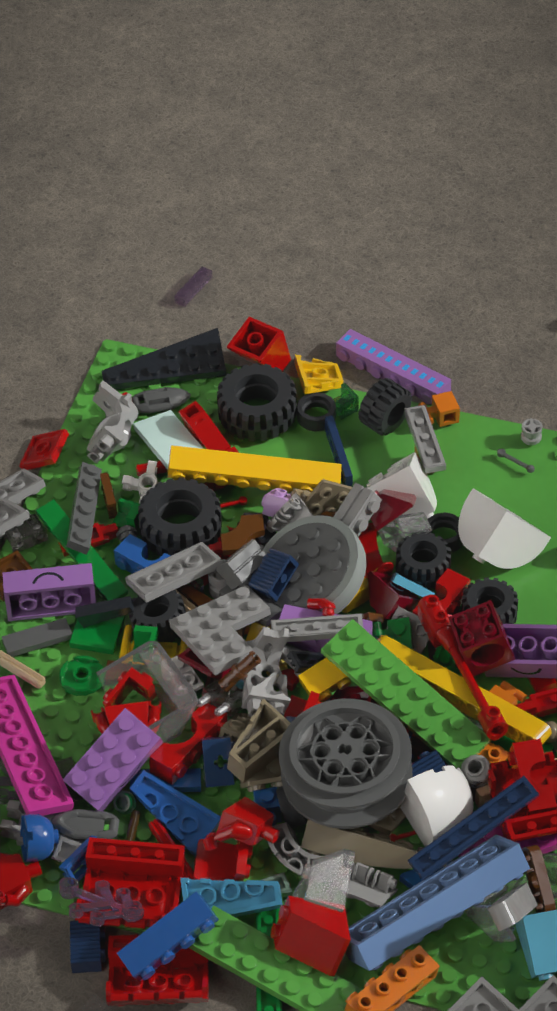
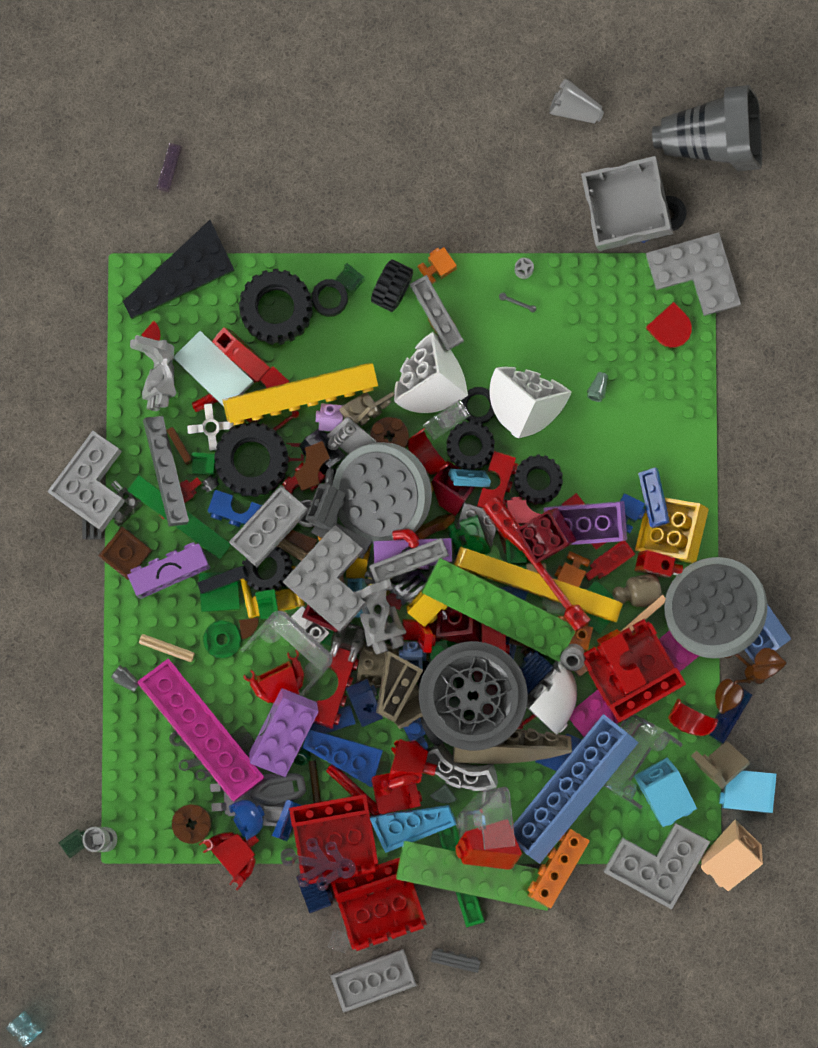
camera: 15 degrees left, 35 degrees up
(37, 637) = (171, 611): dark grey tile -> none
(44, 449) = (104, 406): red plate -> none
(128, 681) = (277, 647): red bracket -> none
(160, 399) = (185, 319): dark grey piece -> none
(168, 936) = (381, 883): blue brick -> none
(239, 671) = (359, 623): reddish brown pin -> none
(261, 344) = (259, 246): red slope -> none
(273, 574) = (354, 512): dark blue brick -> none
(318, 375) = (318, 252): yellow wing -> none
(338, 450) = (363, 341): dark blue tile -> none
(358, 508) = (406, 427): light grey brick -> none
(373, 891) = (518, 781): light grey hinge -> none
(387, 363) = (380, 221): medium lavender brick -> none
(391, 506) = (431, 411): dark red slope -> none
(473, 828) = (586, 720): dark blue tile -> none
(512, 906) = (635, 788): light grey beam -> none
(538, 879) = (645, 743): reddish brown beam -> none

